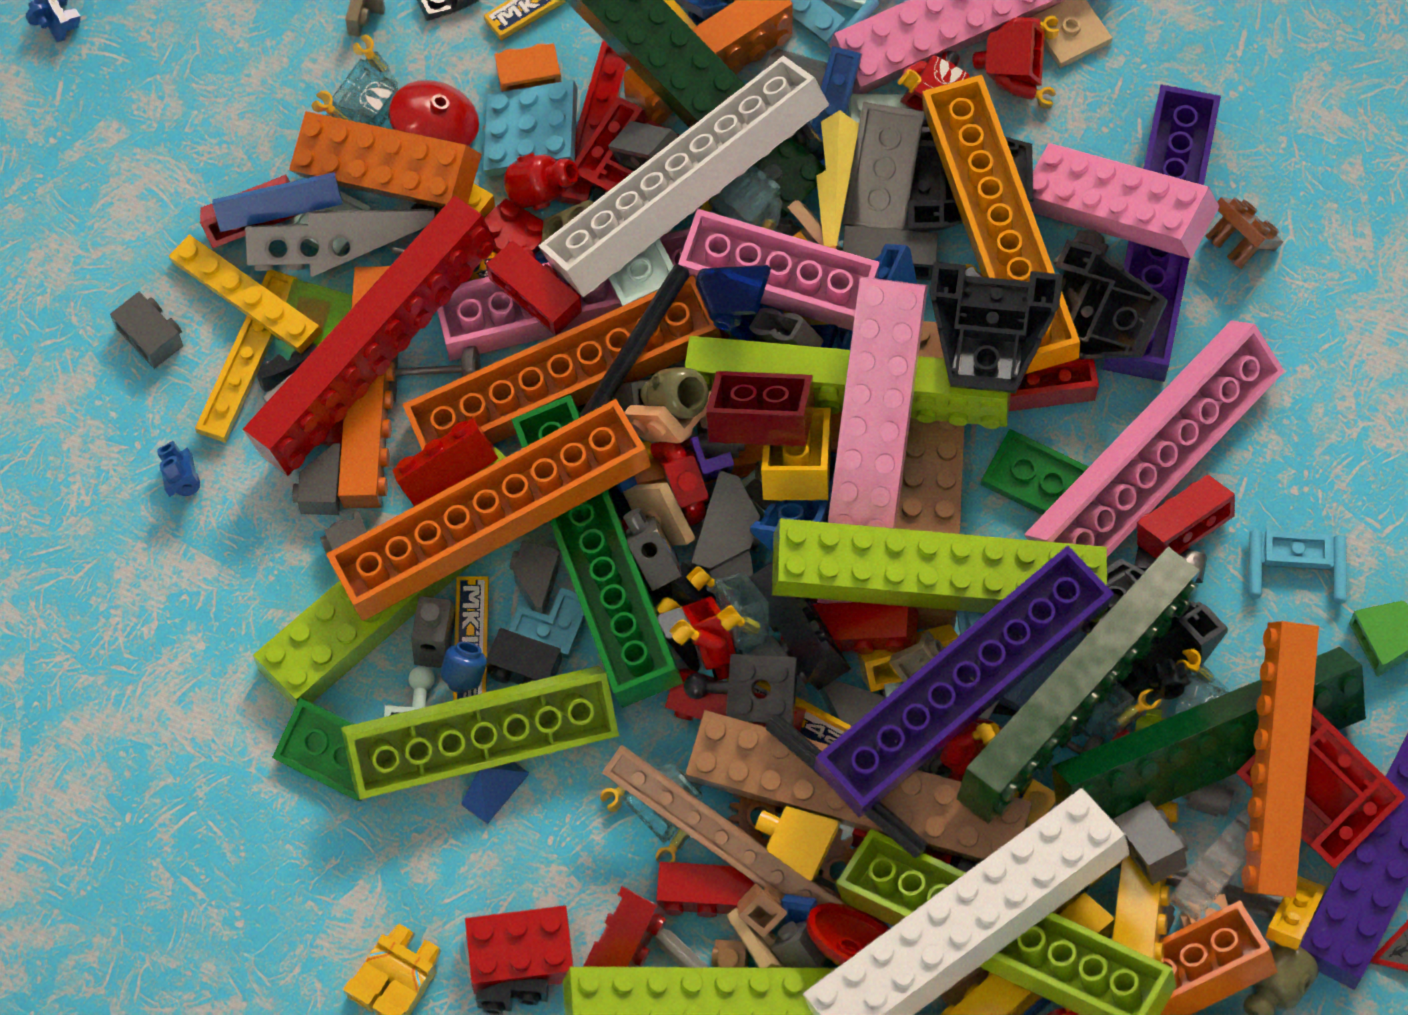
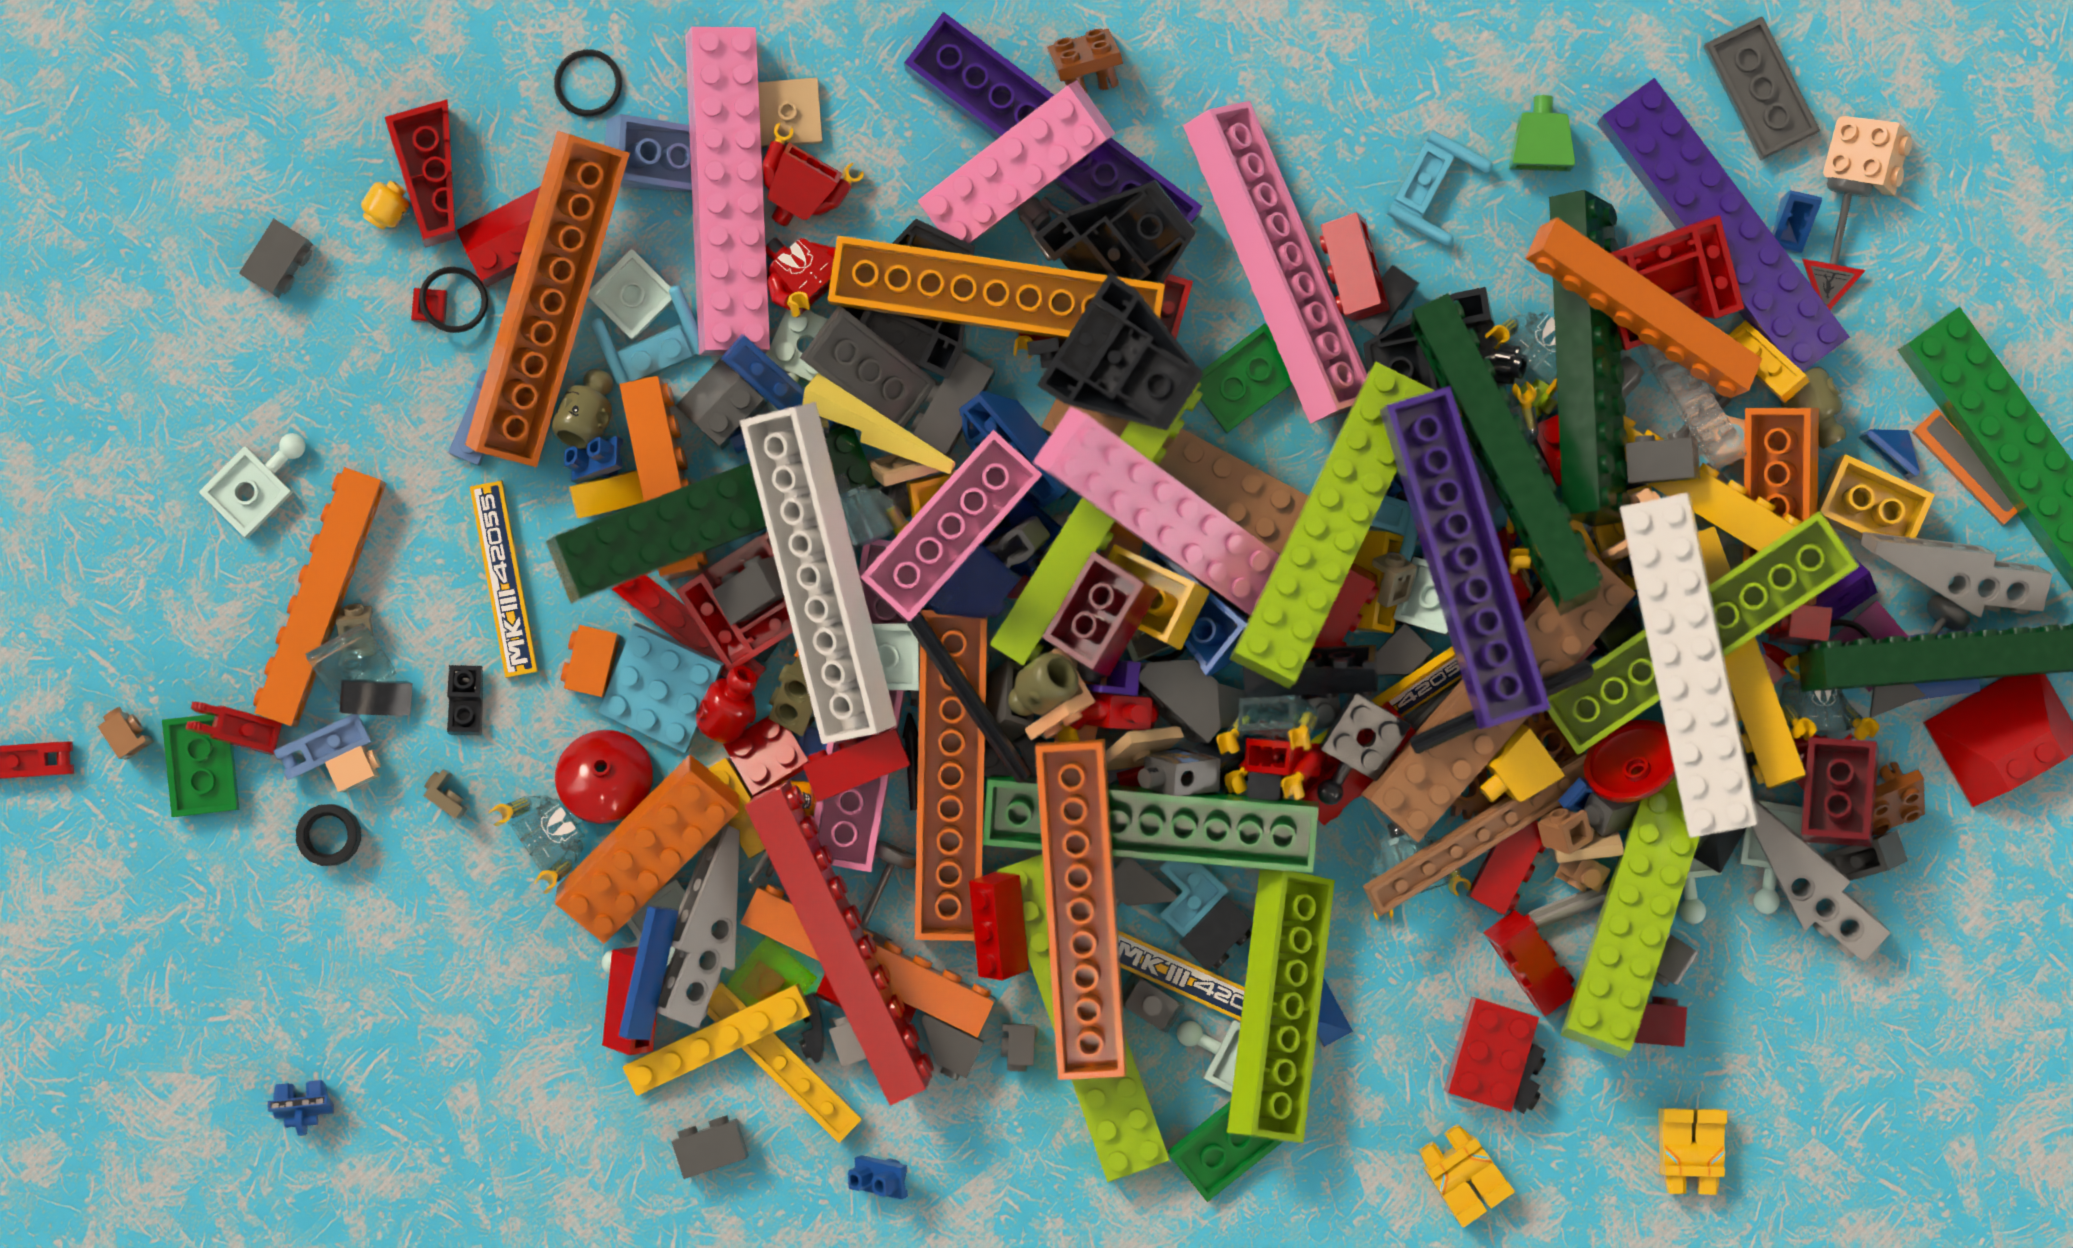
camera: 70 degrees left, 20 degrees up
(463, 667) = (1206, 993): blue head -> none

